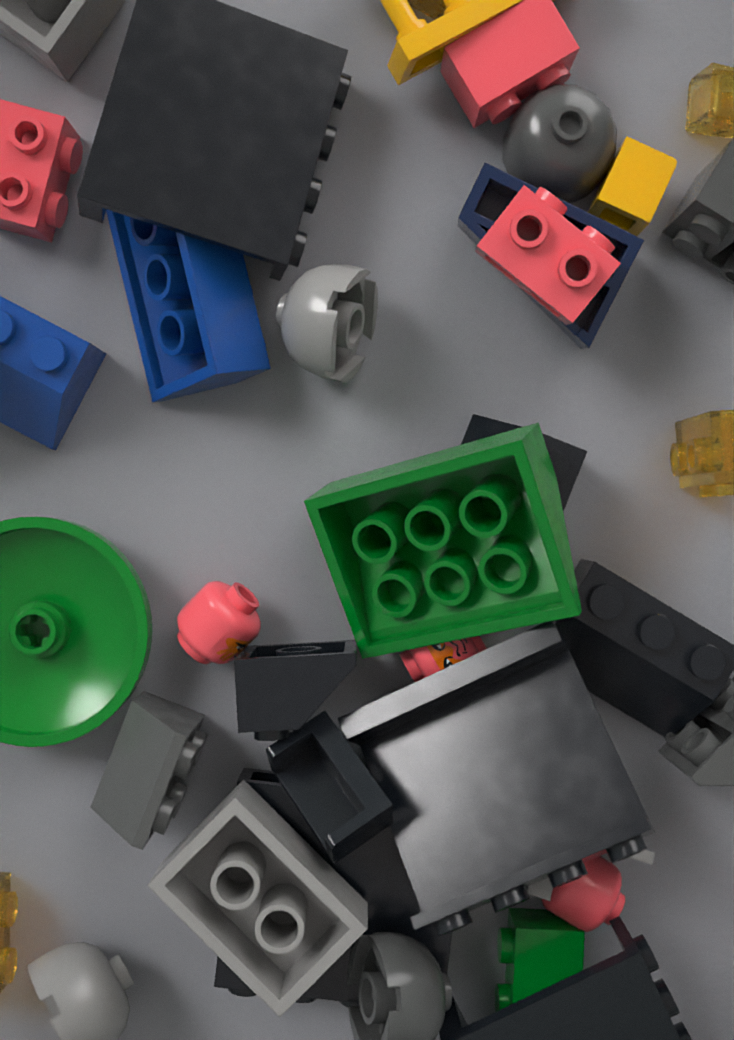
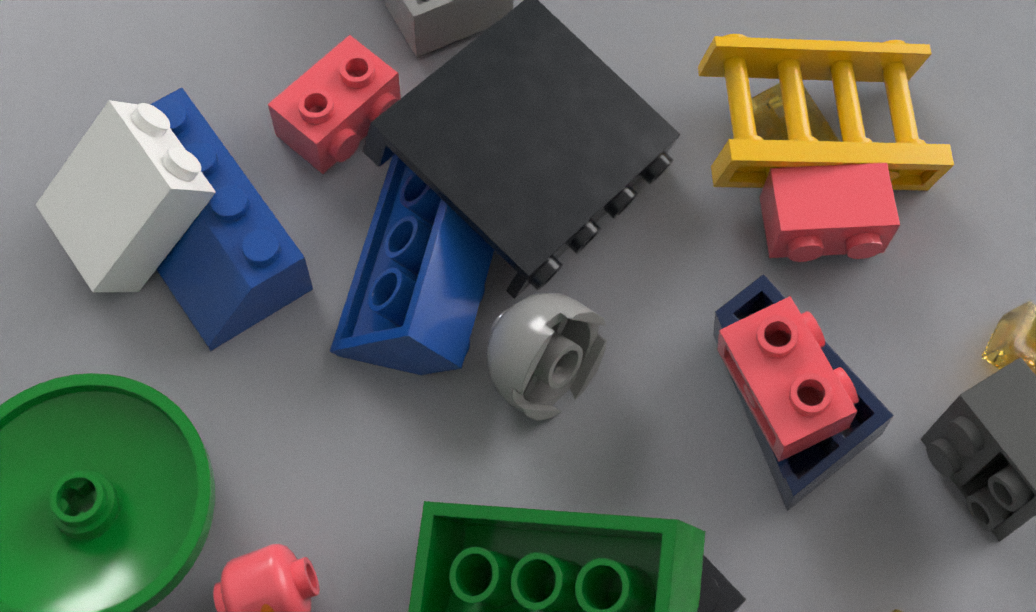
camera: 25 degrees right, 25 degrees down
(561, 141) = (855, 302): dark grey cylinder -> none
(633, 186) = (907, 372): yellow panel -> none

